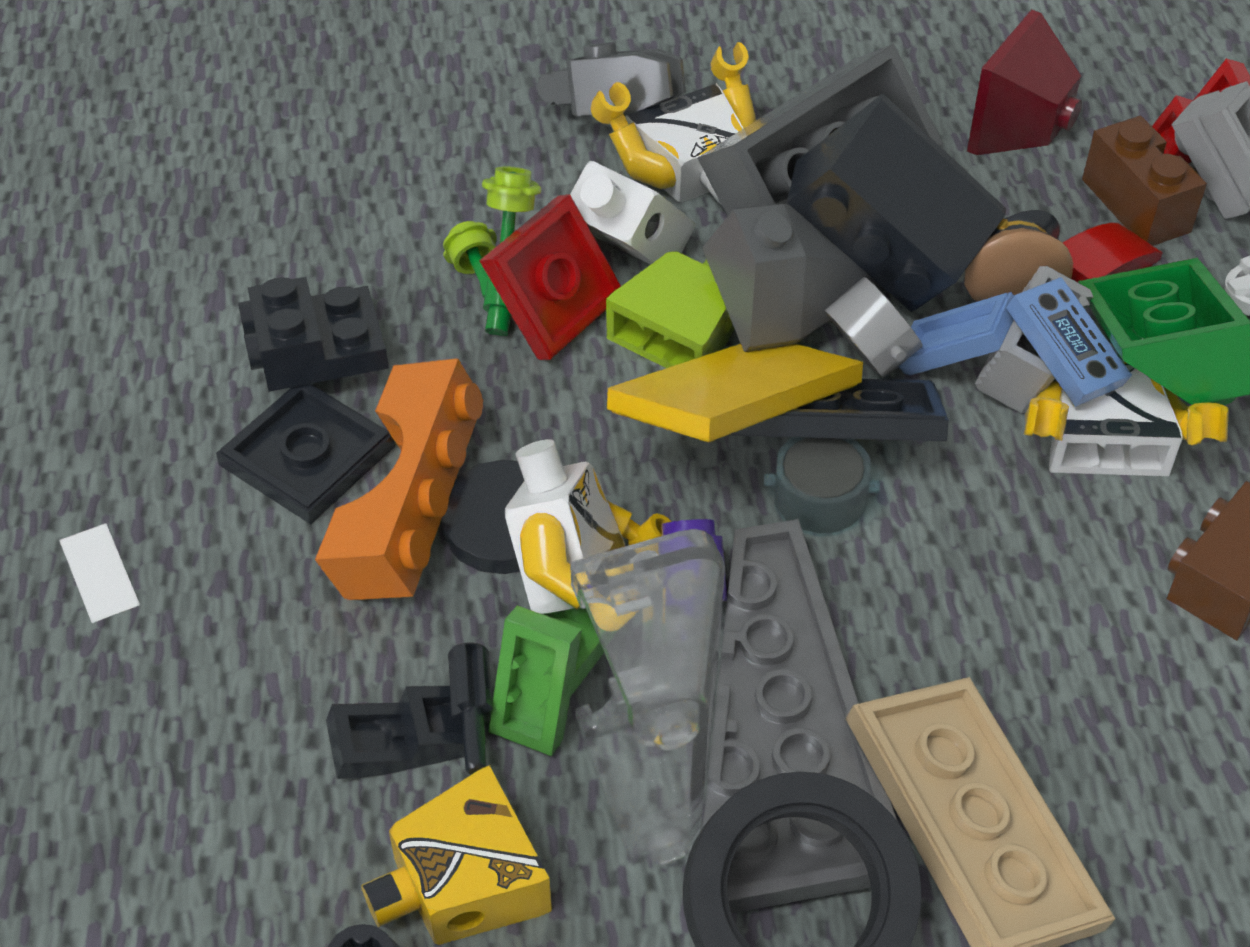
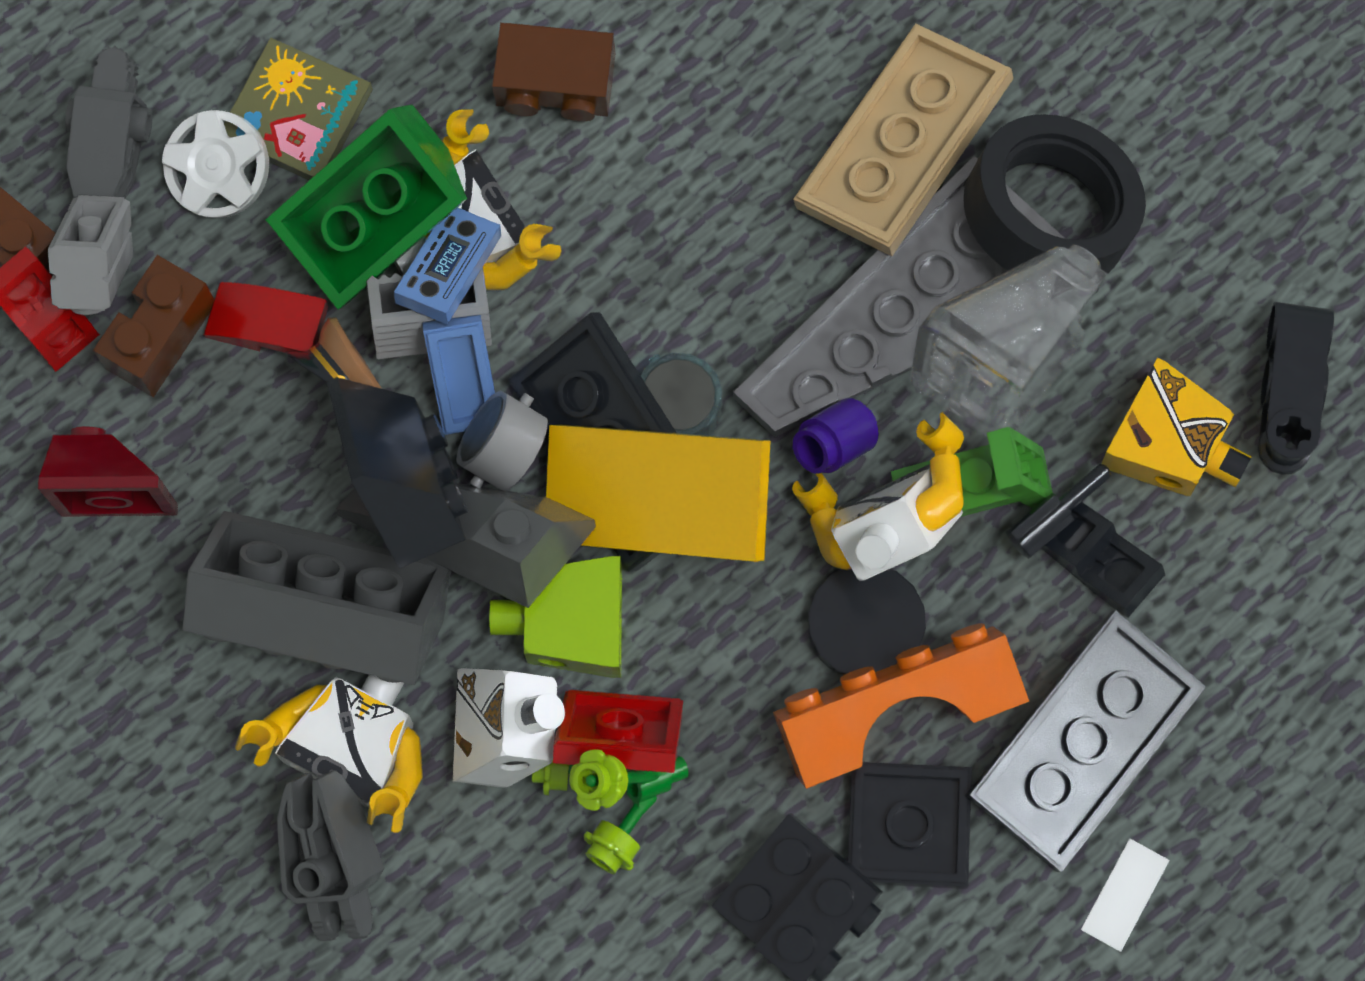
camera: 120 degrees left, 25 degrees up
(248, 614) = (1085, 741): none -> tile

